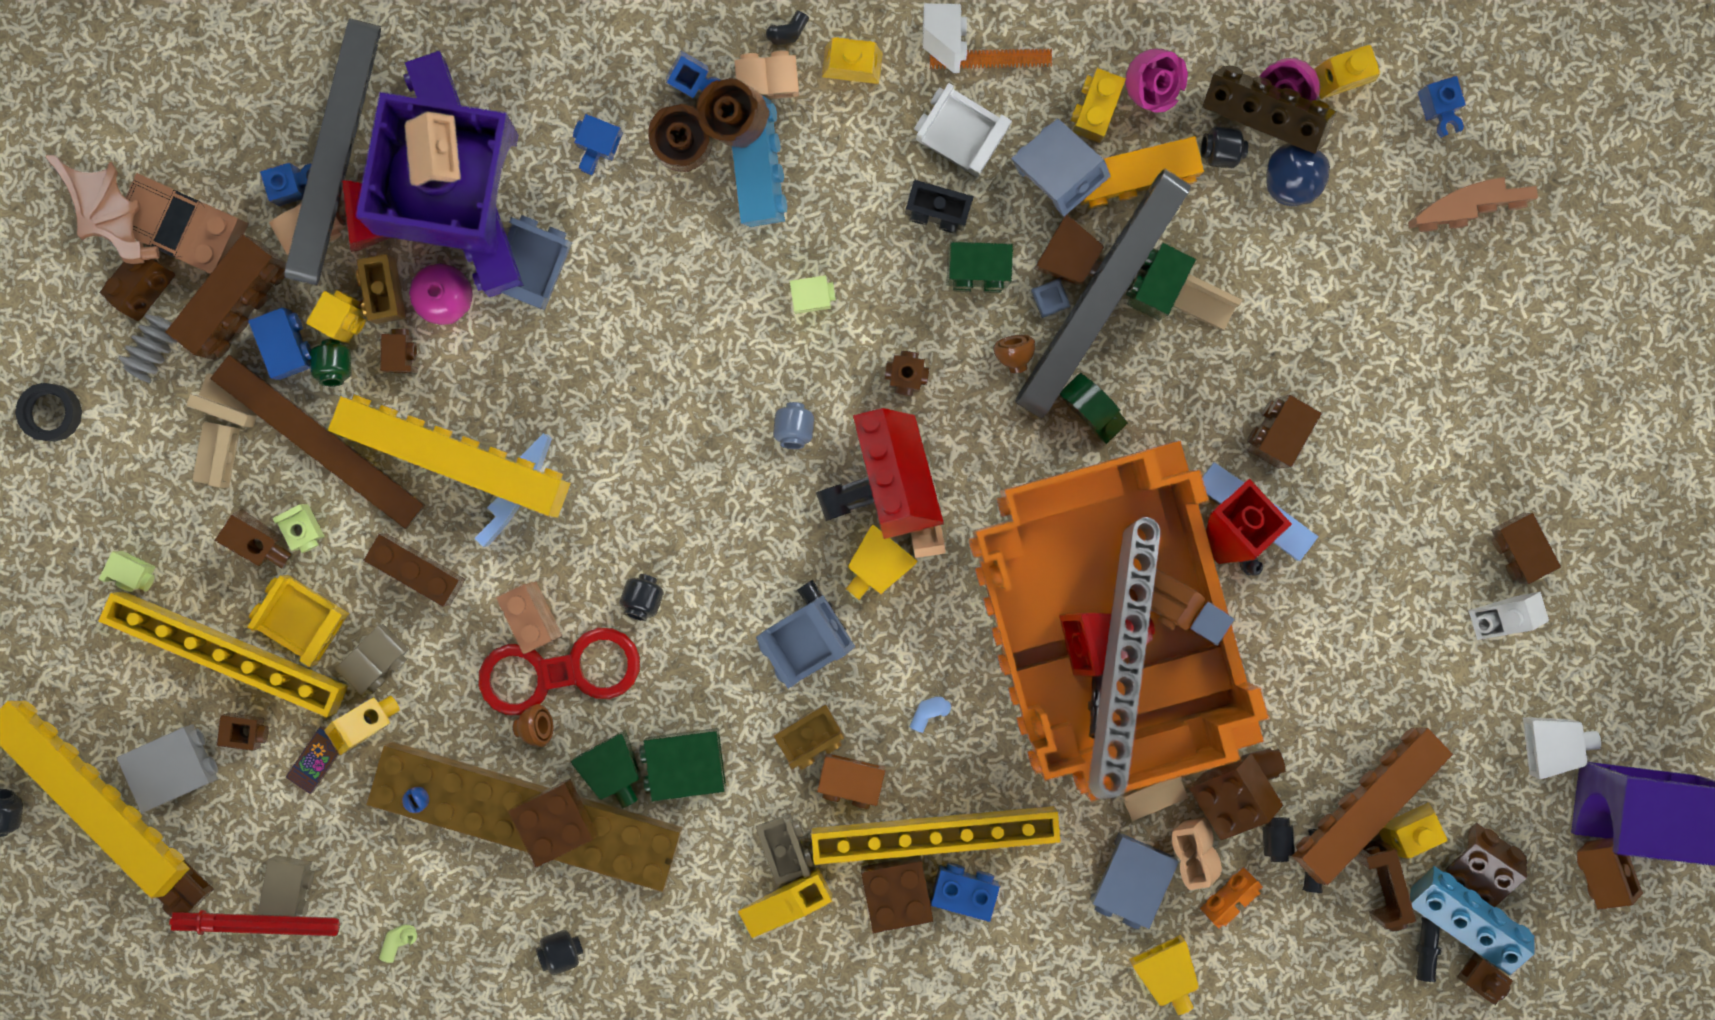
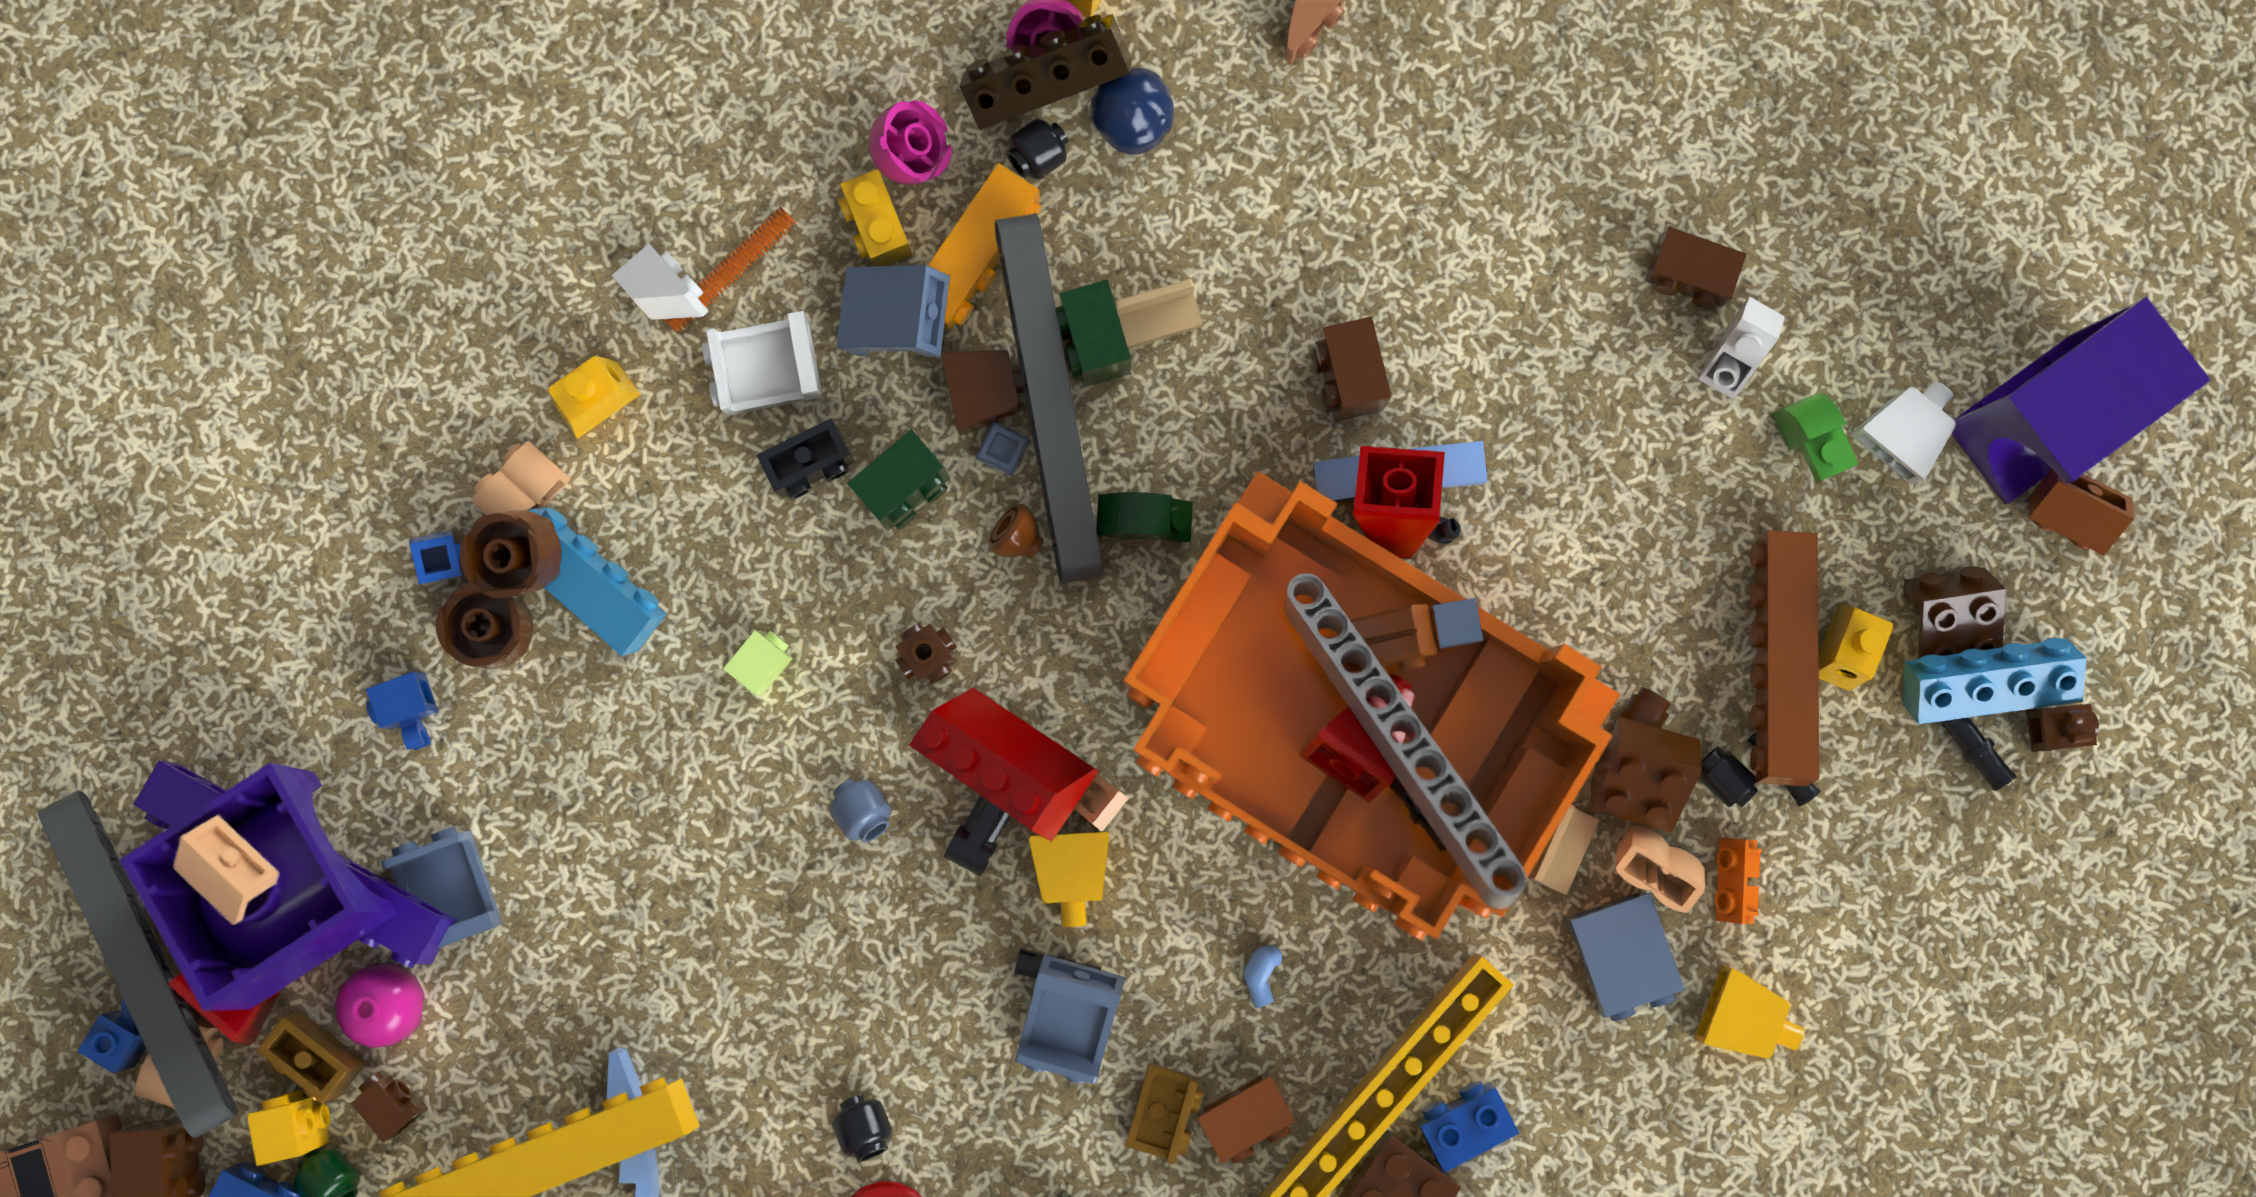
camera: 40 degrees left, 5 degrees down
(789, 32) = (503, 426): black arm -> none
(1398, 908) = (1911, 737): reddish brown panel -> none
(1507, 698) = (1817, 429): none -> bright green brick

